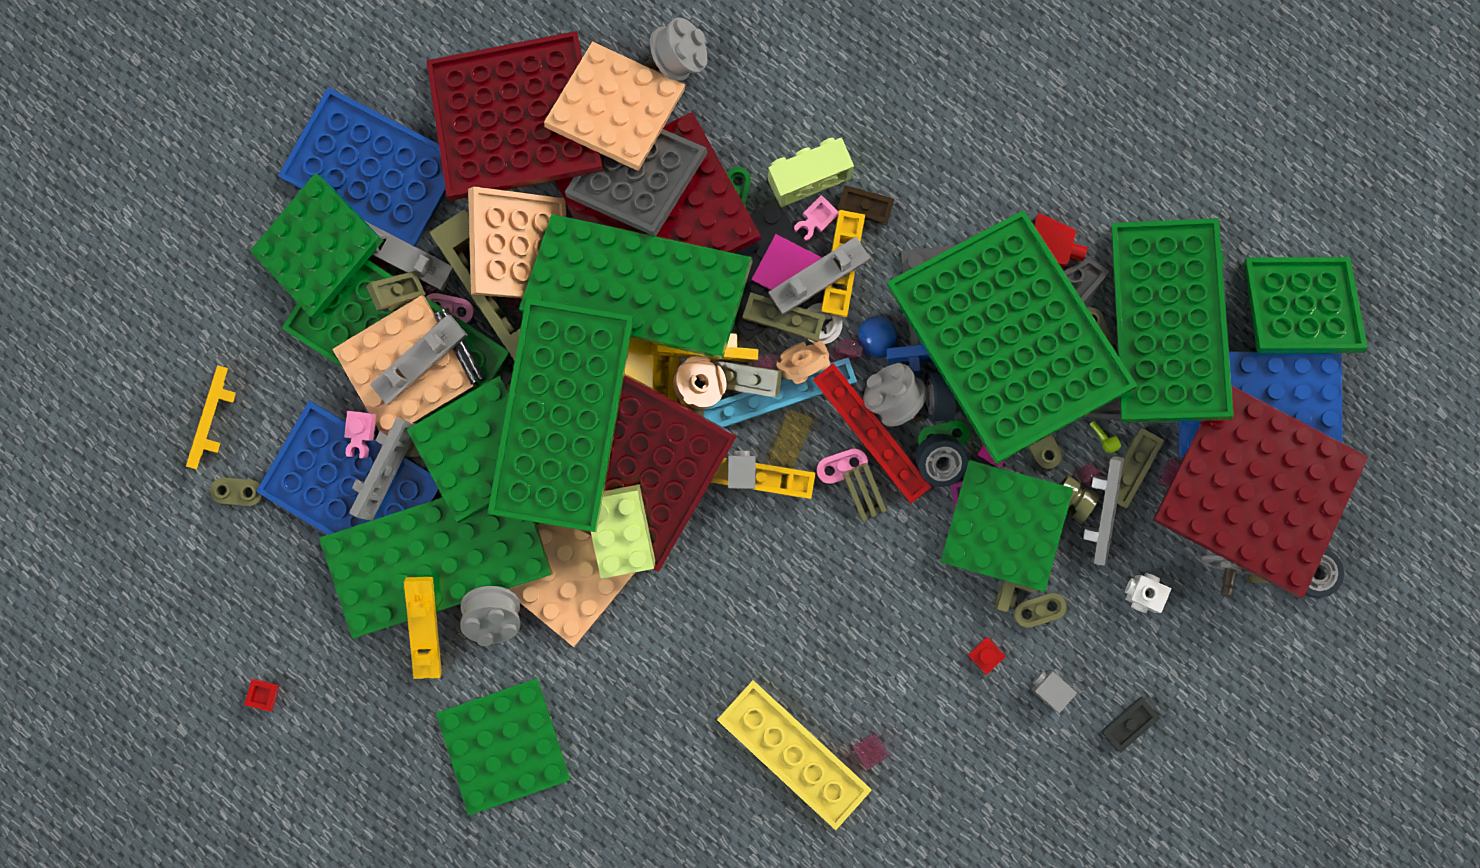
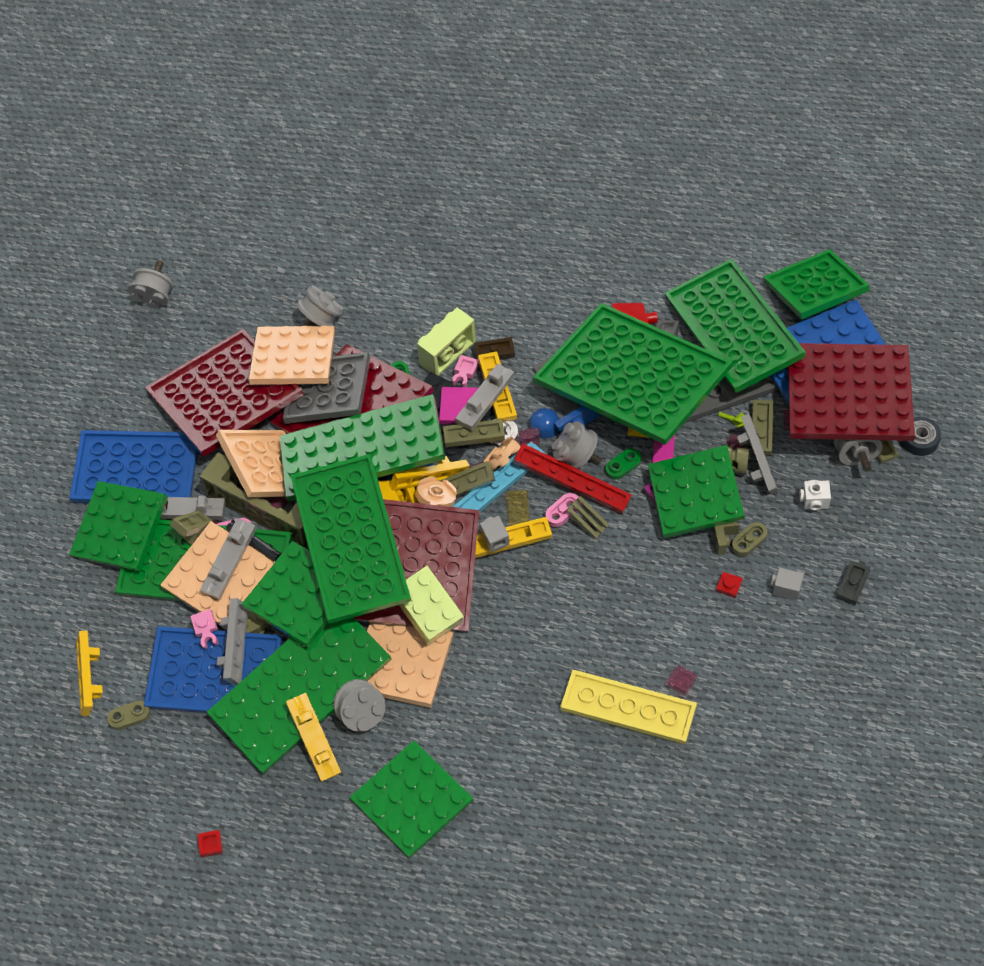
camera: 25 degrees left, 25 degrees down
(939, 398) = (608, 435): black wheel -> none
(947, 472) = (639, 471): wheel -> none
(1038, 449) = (692, 439): olive plate -> none

